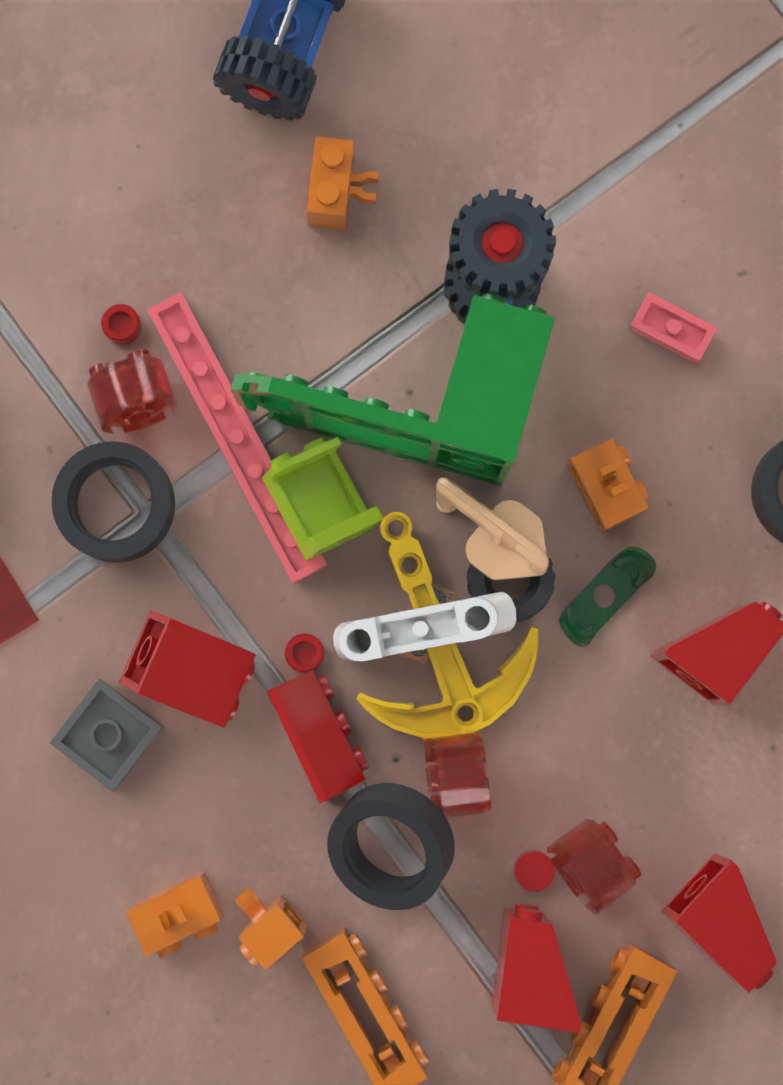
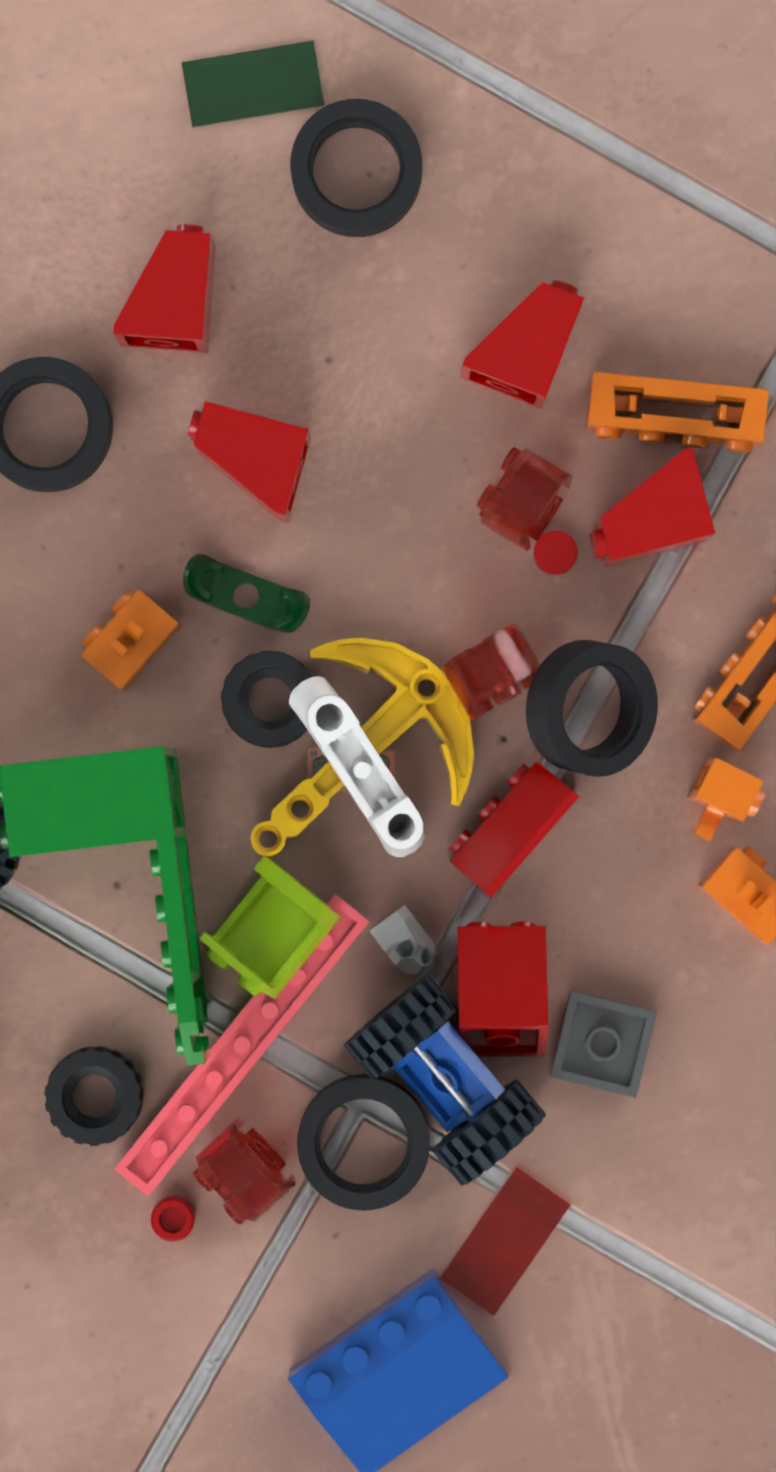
camera: 110 degrees left, 5 degrees up
(88, 607) = (447, 1079): none -> black plate
(247, 272) = (60, 1096): none -> black tyre
(262, 606) = (405, 942): none -> light grey rock
(304, 653) = (435, 878): red tile -> none
(507, 539) = (235, 720): light nougat piece -> none

